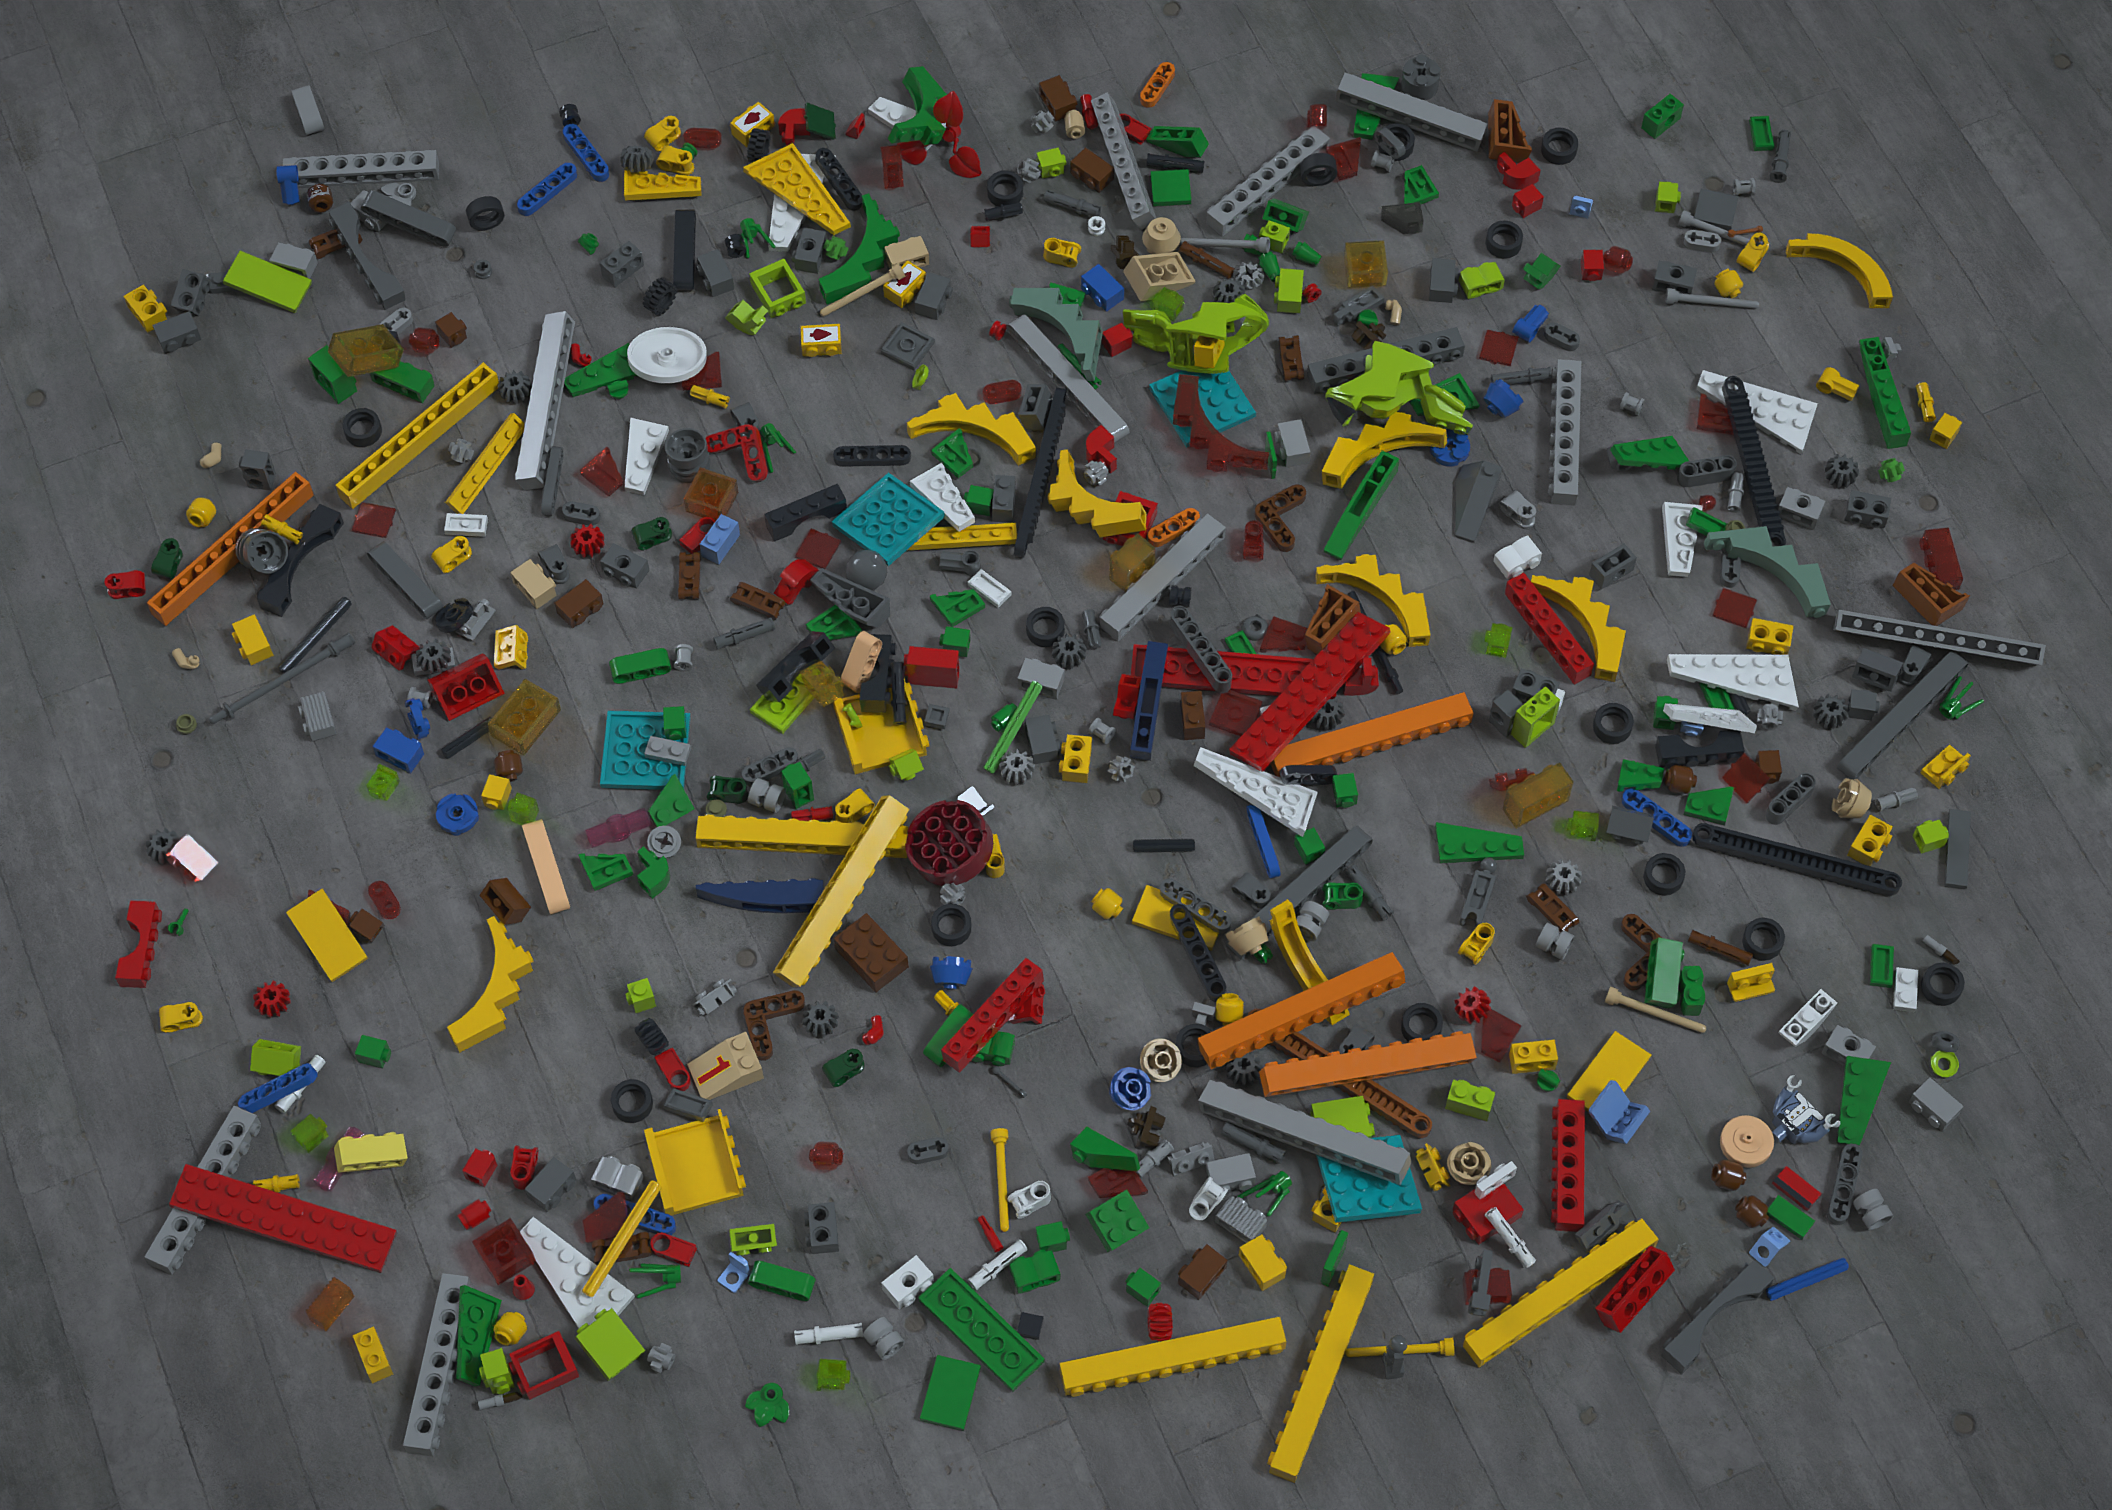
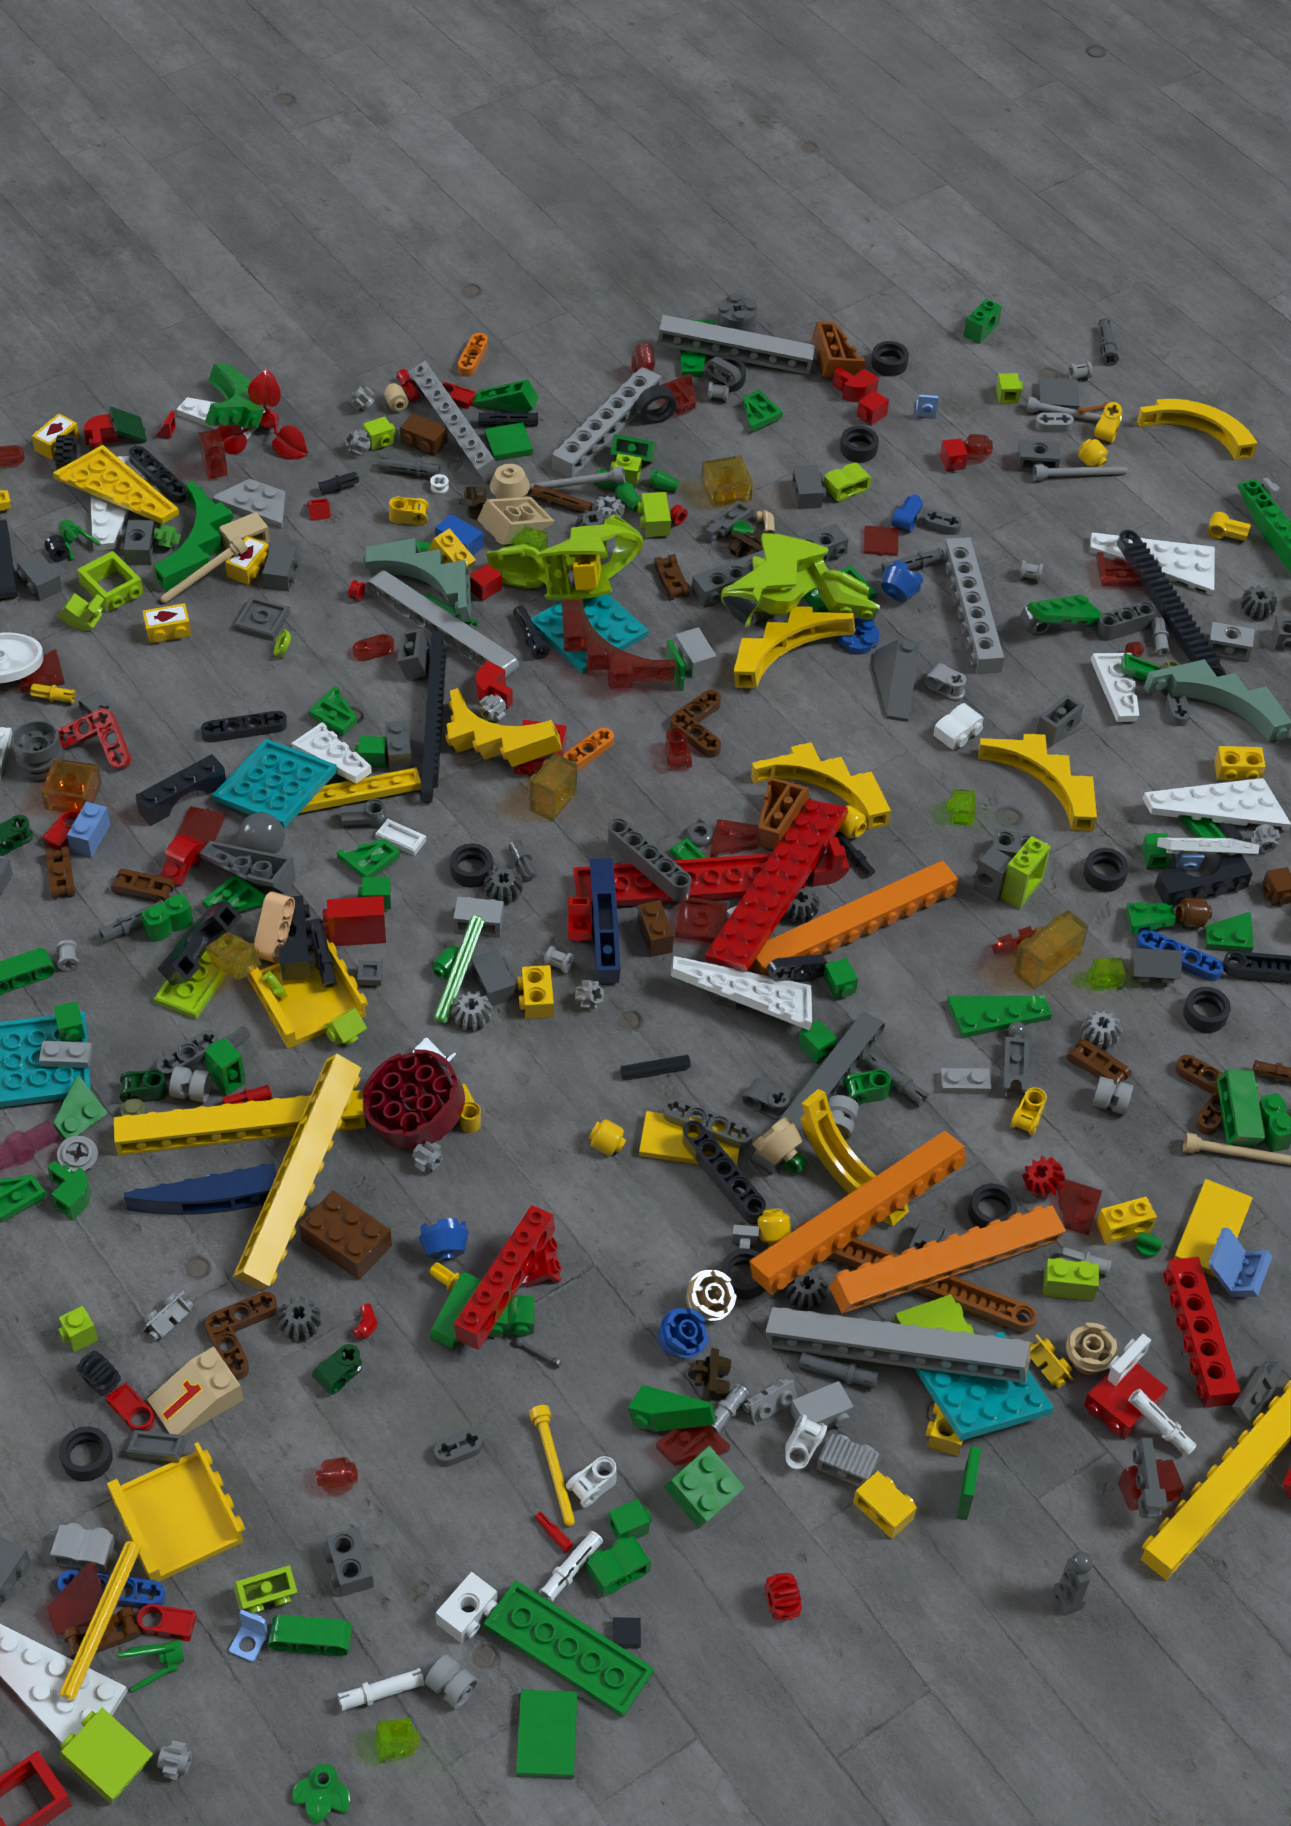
camera: 15 degrees left, 10 degrees down
(771, 436) = (128, 721): green plant -> none
(772, 636) = (166, 918): none -> green brick
(853, 807) = (294, 1081): yellow piece -> none
(923, 219) = (254, 497): none -> light grey wing
(946, 910) = (430, 1173): black tyre -> none
(977, 420) = (353, 676): yellow arch -> none
(1005, 176) = (335, 451): black tyre -> none
(1057, 97) = (372, 374): reddish brown brick -> none
(1091, 305) = (452, 548): none -> yellow brick
(1142, 1286) = (751, 1559): green brick -> none
(1148, 405) = (533, 638): none -> black pin
(1157, 581) = (587, 798): light grey brick -> none
(1173, 1356) = (806, 1636): yellow brick -> none
(1180, 596) = (609, 812): black wheel -> none
(1202, 1271) = (817, 1528): reddish brown brick -> none
(1263, 841) = (765, 1044): blue beam -> none
(1277, 1183) = (879, 1412): green plant -> none
(1321, 1373) = (988, 1625): yellow brick -> none
(1362, 504) = (783, 698): green slope -> none
(1403, 217) = (753, 437): clear smoke slope -> none
(1430, 904) = (965, 1080): none -> light grey plate
(1444, 1347) = (1122, 1563): yellow piece -> none
(1479, 1080) = (1073, 1255): none -> light grey axle
(1541, 271) = (904, 465): green brick -> none
(1549, 628) = (1011, 788): red brick -> none
(1734, 607) = (1193, 743): clear red piece -> none
(1746, 777) = (1261, 900): clear red piece -> none
(1761, 133) = (1081, 326): green tile -> none

